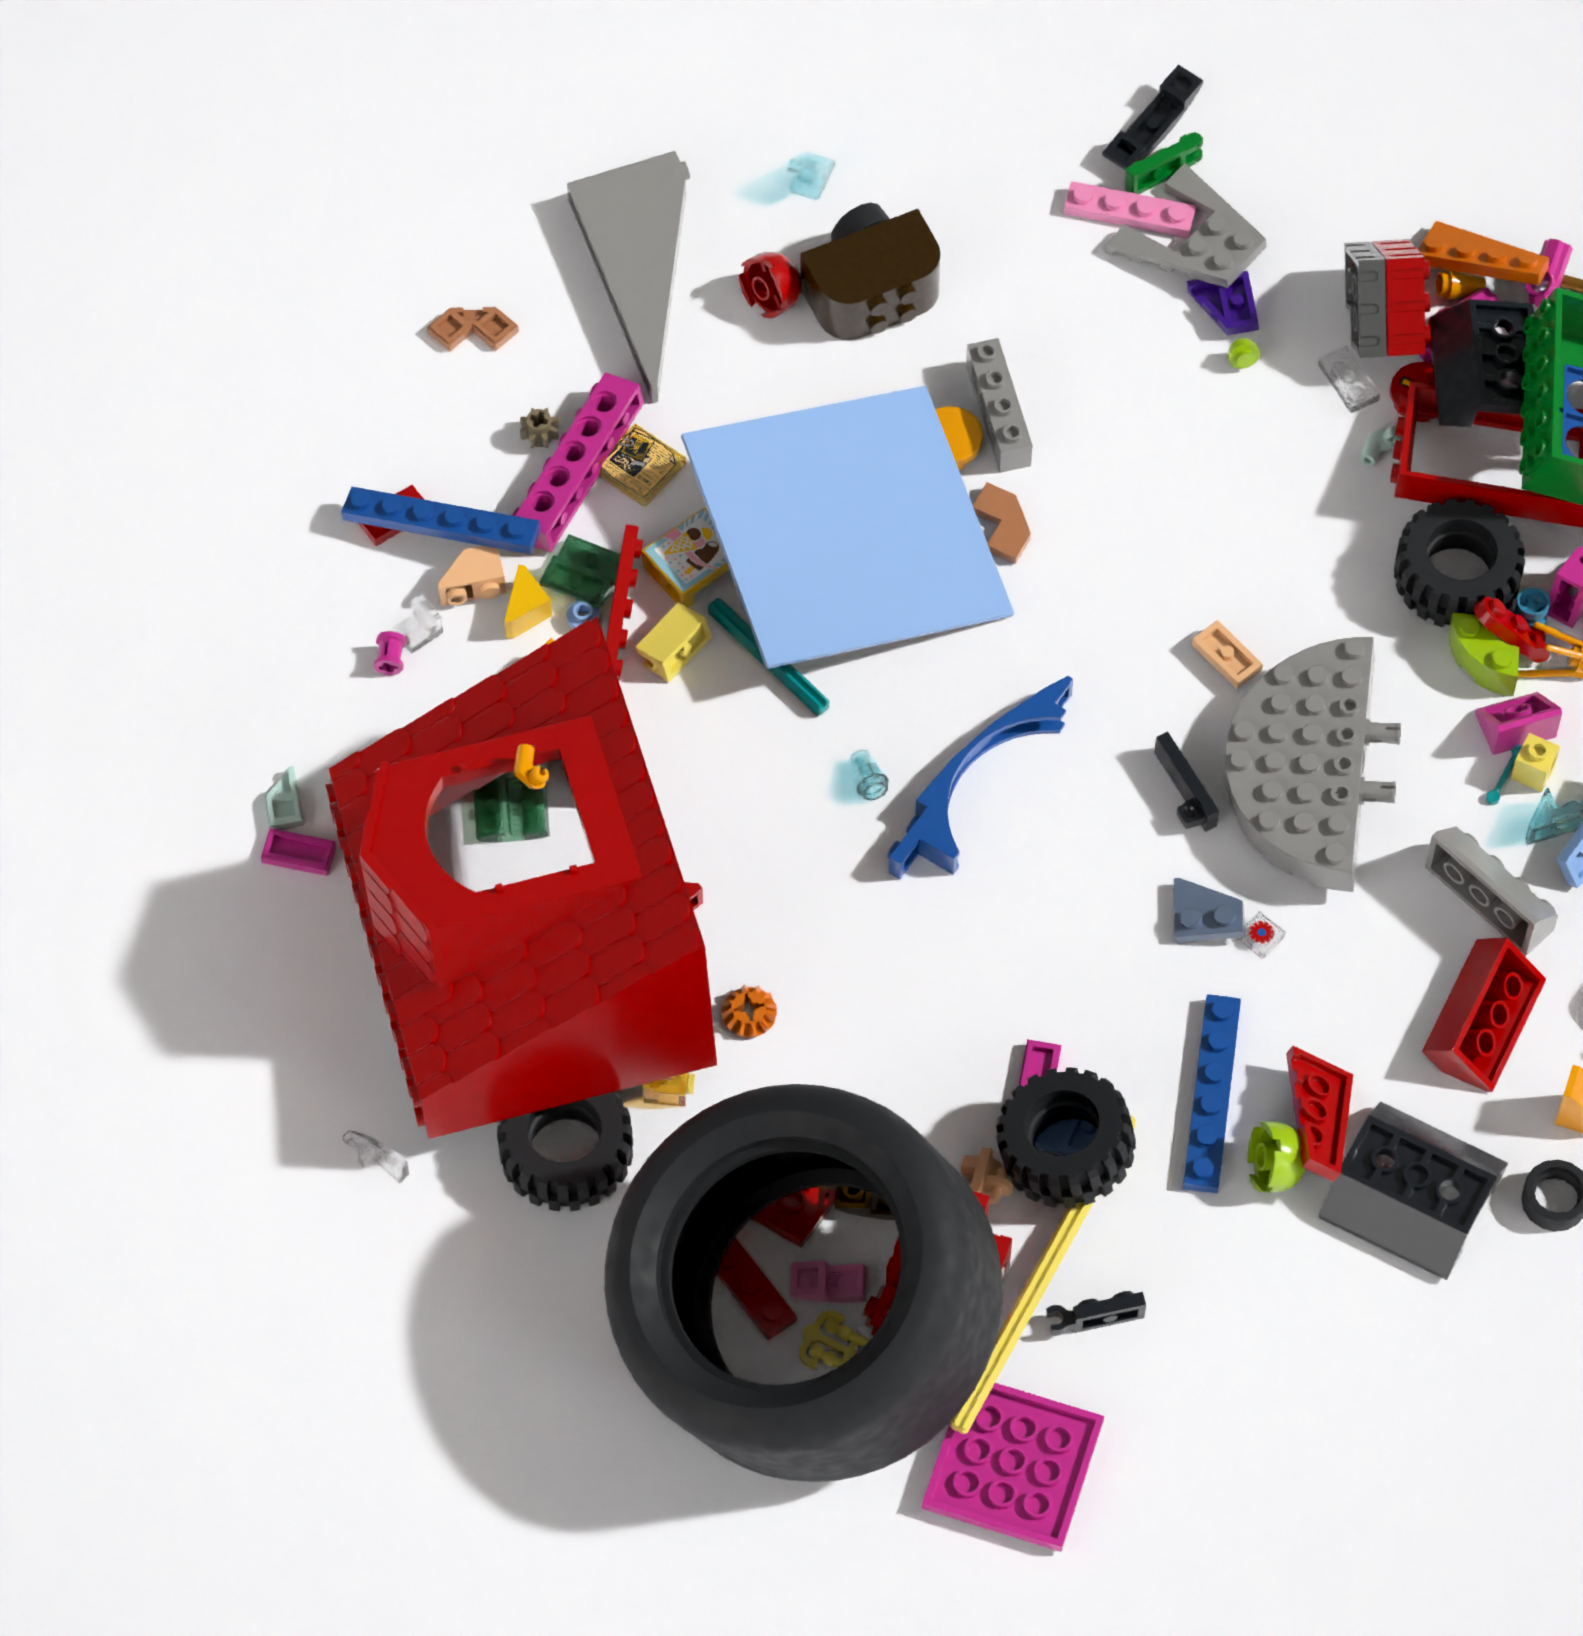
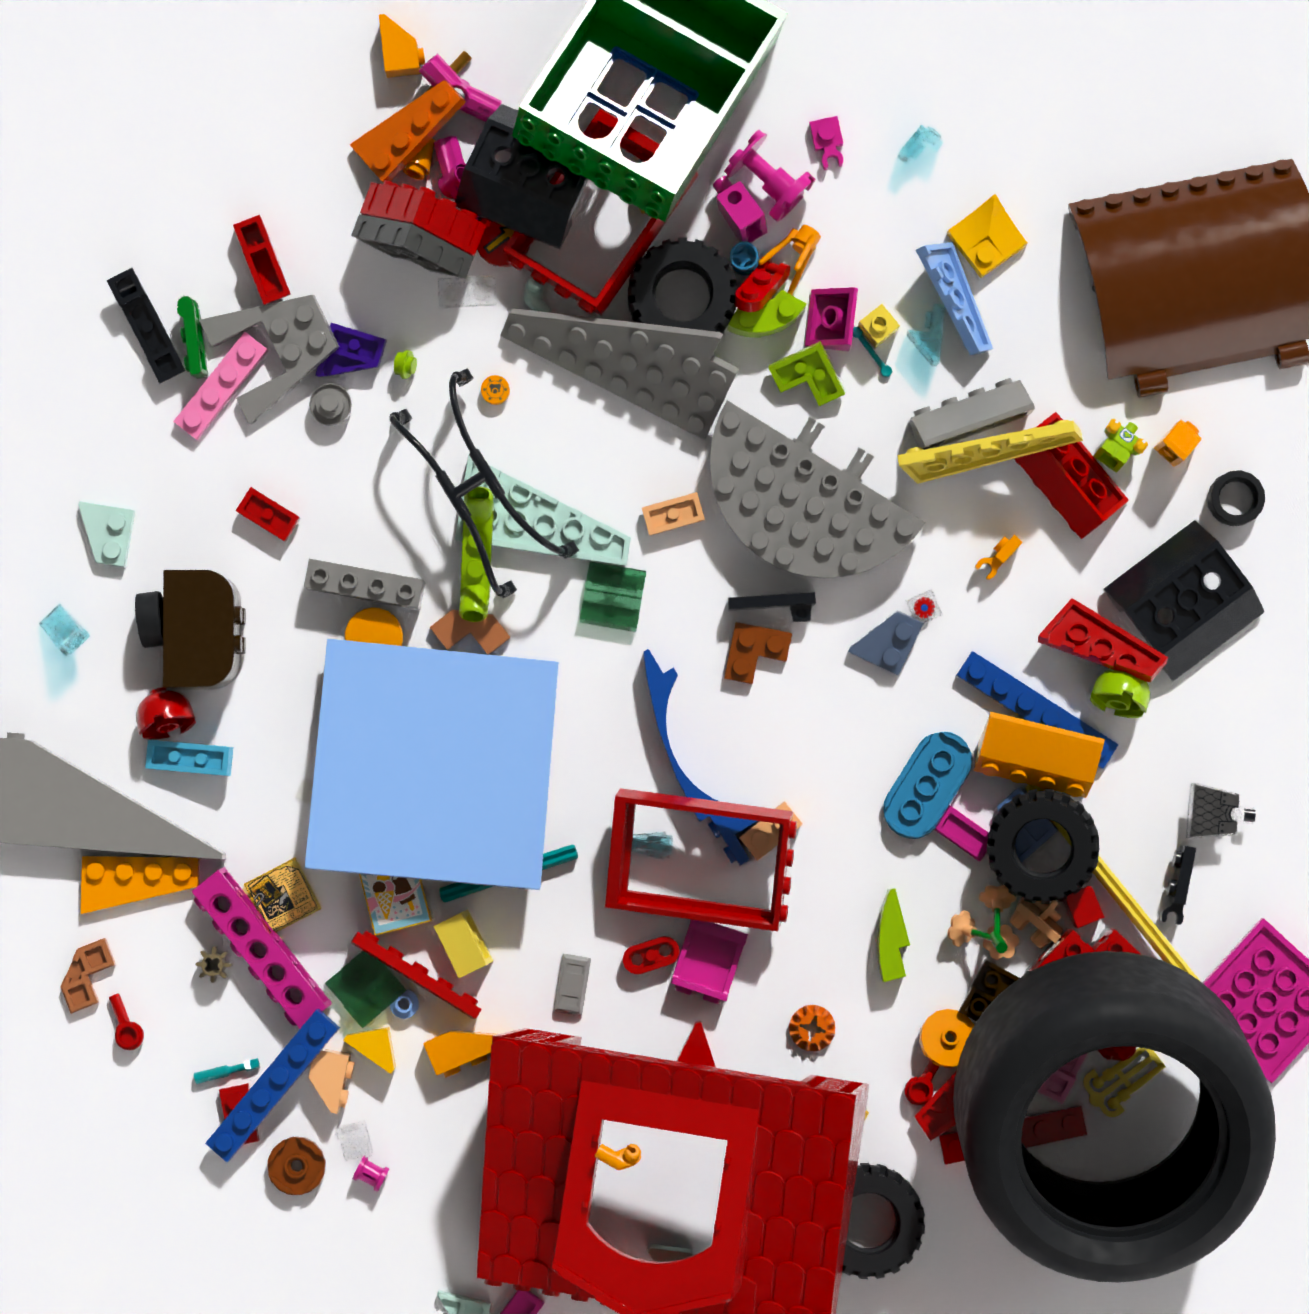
camera: 70 degrees left, 25 degrees up
(361, 571) = (290, 1180): none -> dark orange plate
(429, 480) = (225, 1071): none -> teal piece
(431, 383) = (128, 1034): none -> red plate
(590, 327) = (123, 880): none -> light orange wing
(681, 764) = (572, 984): none -> light grey tile
(740, 325) = (189, 757): none -> medium azure hinge
(752, 822) = (651, 956): none -> red plate
(773, 879) = (708, 960): none -> dark pink panel
(841, 741) = (620, 859): none -> red window
(887, 1043) = (891, 937): none -> lime slope
(929, 173) = (108, 532): none -> light aqua wing
(933, 1115) = (998, 939): none -> light nougat plant
(941, 877) = (764, 835): none -> light nougat brick
(1019, 1220) = (1083, 907): none -> red panel
(1023, 296) = (268, 514): none -> red plate
(1071, 1014) = (927, 785): none -> dark azure tile
(1109, 636) = (612, 596): none -> clear green slope
(1122, 469) = (474, 583): none -> lime plate
(1127, 783) = (748, 644): none -> dark orange plate
(1145, 517) = (551, 520): none -> light aqua wing
(1163, 1098) = (1038, 755): none -> light orange slope
(1164, 306) = (330, 404): none -> light grey plate
(1187, 376) = (485, 474): none -> black bar
(1195, 1317) = (1215, 812): none -> torso
(1263, 446) = (495, 390): none -> light orange tile
(1277, 187) = (262, 259): none -> red slope
(1362, 984) = (1004, 550): none -> light orange plate
(1366, 546) = (646, 364): none -> light grey wing
(1449, 891) = (973, 454): none -> light yellow wing
(1454, 716) = (811, 366): none -> lime plate
(1545, 1049) = (1119, 445): none -> lime piece
(1554, 219) = (399, 50): none -> light orange slope

